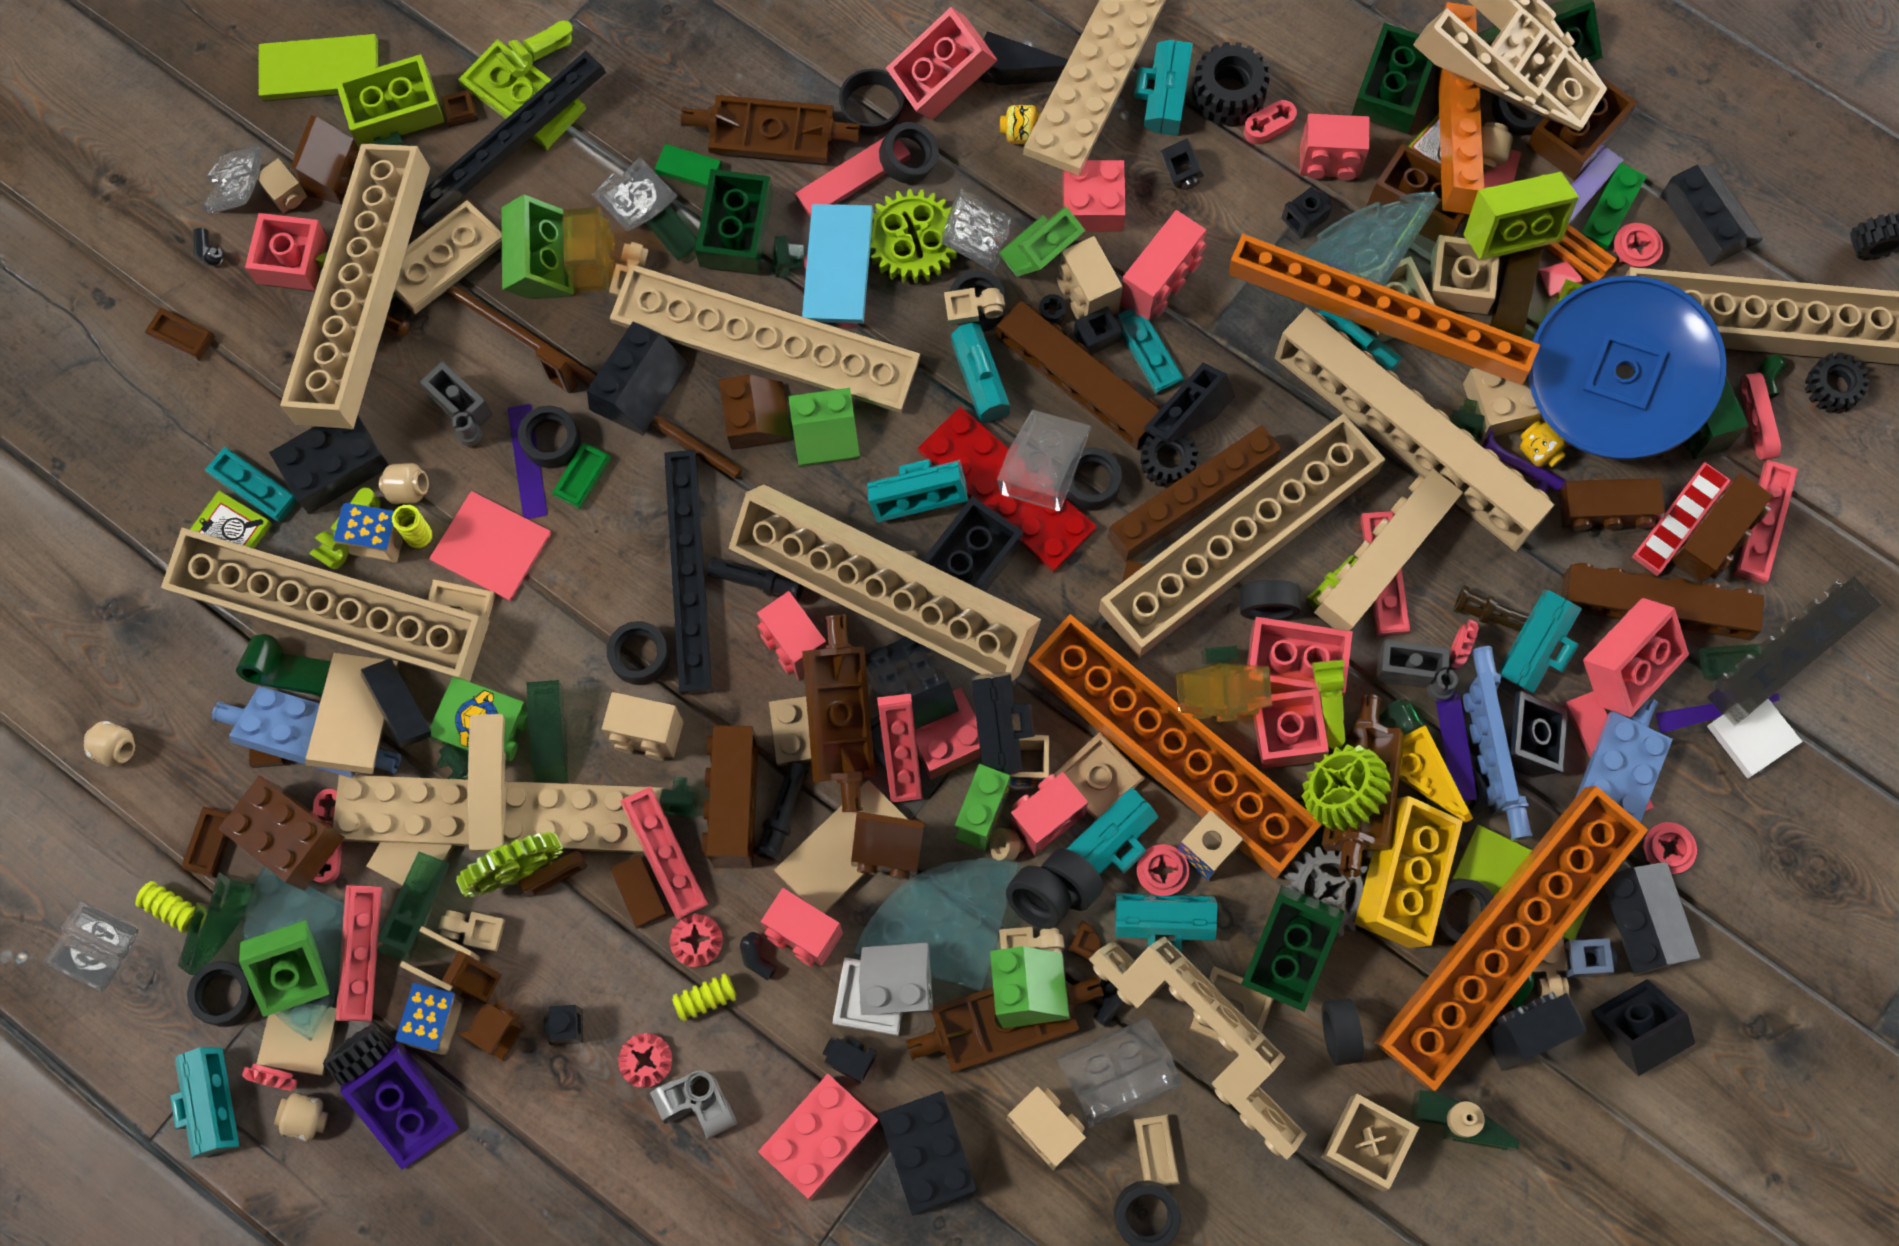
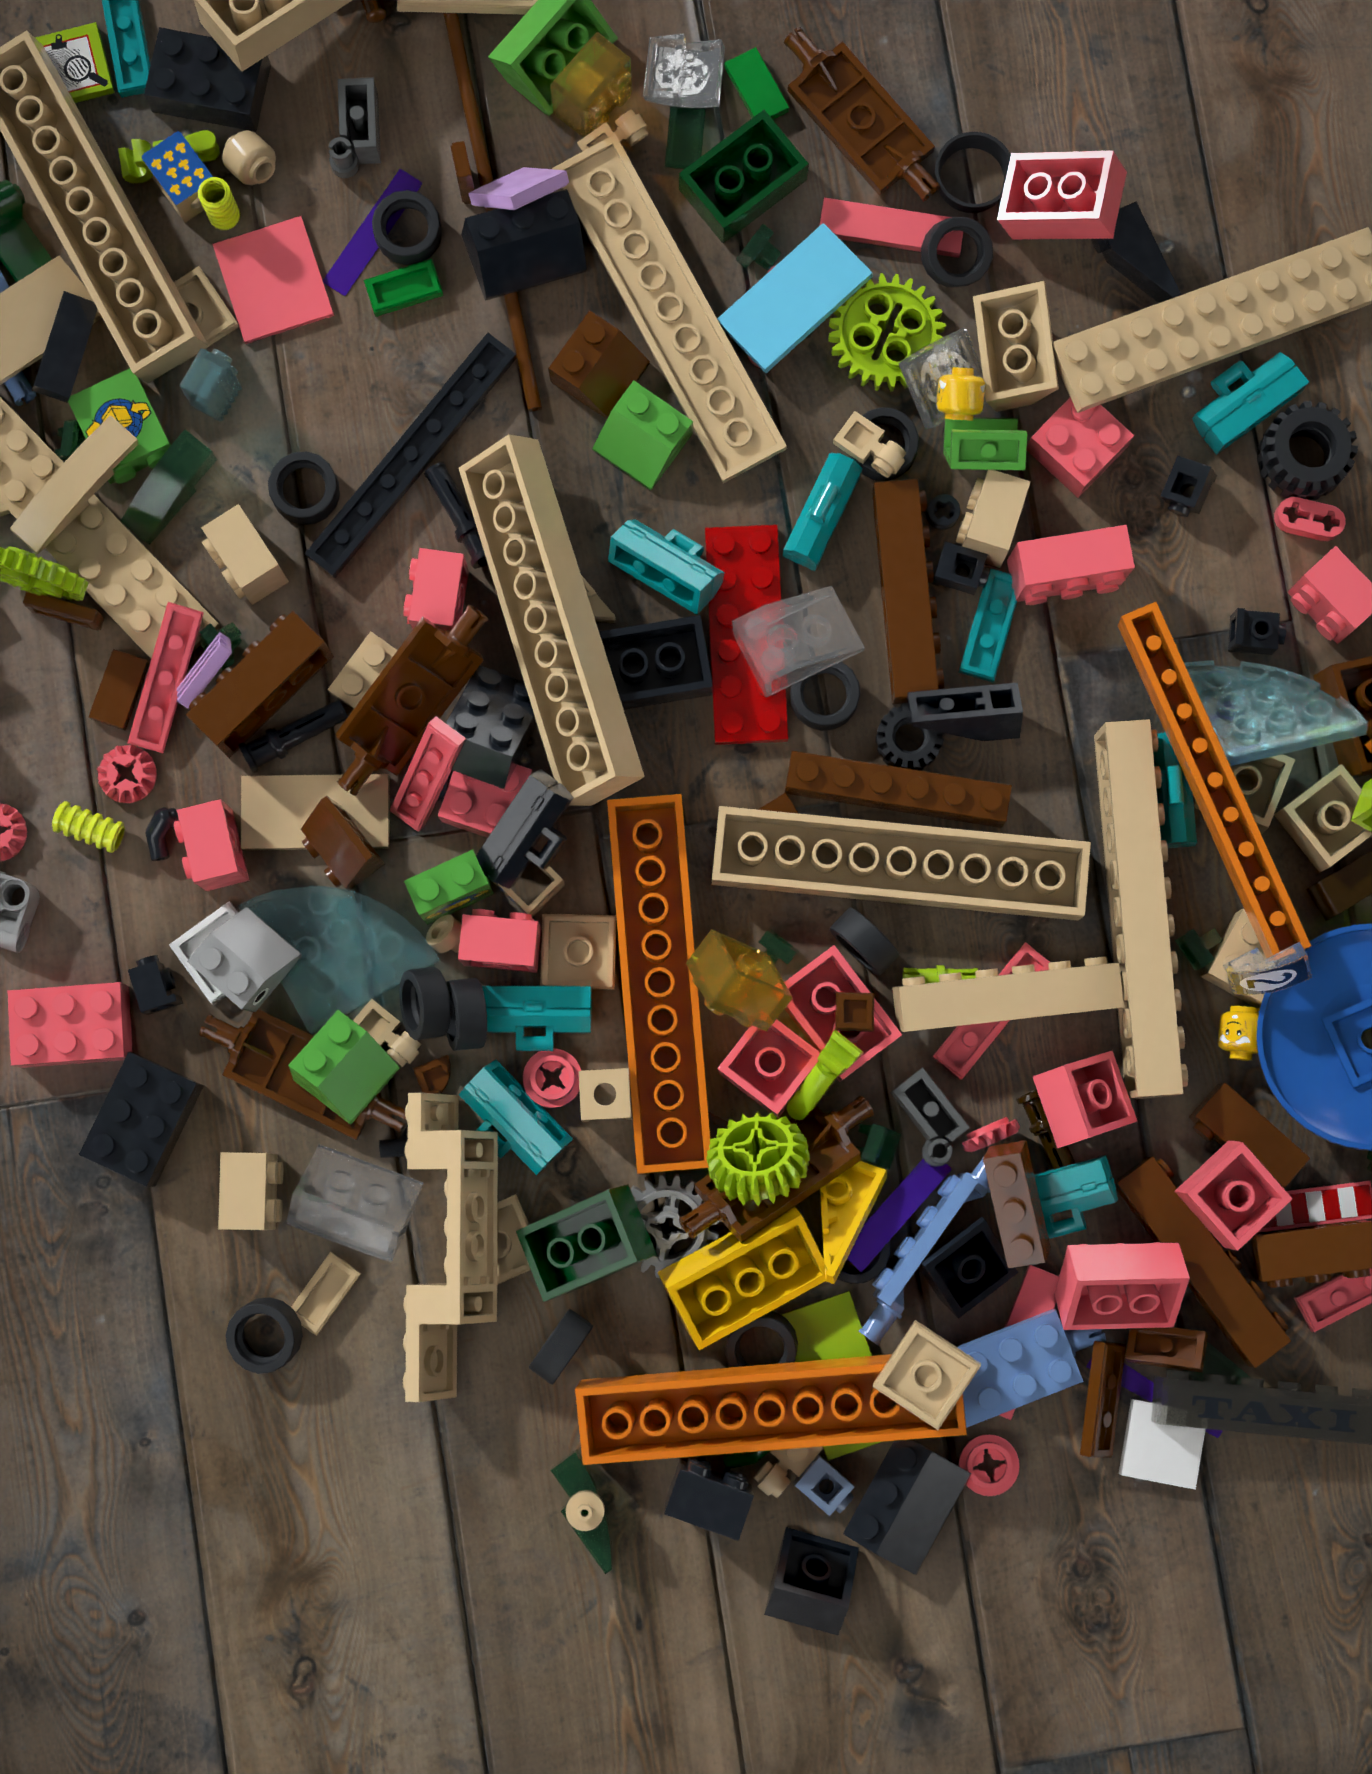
camera: 40 degrees right, 10 degrees up
(516, 639) = (211, 383): none -> clear light blue brick
(601, 347) = (519, 188): none -> lavender tile
(688, 820) = (204, 670): none -> lavender tile
(997, 227) = (960, 394): none -> yellow head
(1002, 170) = (1016, 346): none -> tan slope
(1019, 123) = (1081, 312): yellow head -> none
(1311, 643) = (854, 1012): none -> reddish brown tile
(1369, 1142) = (493, 1453): tan brick -> none
(1497, 568) = (1084, 1099): none -> coral brick
(1527, 664) = (1017, 1204): none -> reddish brown brick
(1528, 388) = (1254, 975): none -> slope
(1543, 477) = (1216, 1061): dark purple piece -> none
(1588, 815) = (926, 1374): none -> tan tile
(1643, 538) = (1233, 1195): none -> coral brick
(1694, 740) = (1102, 1399): none -> reddish brown tile
(1698, 671) = (1167, 1348): none -> reddish brown plate

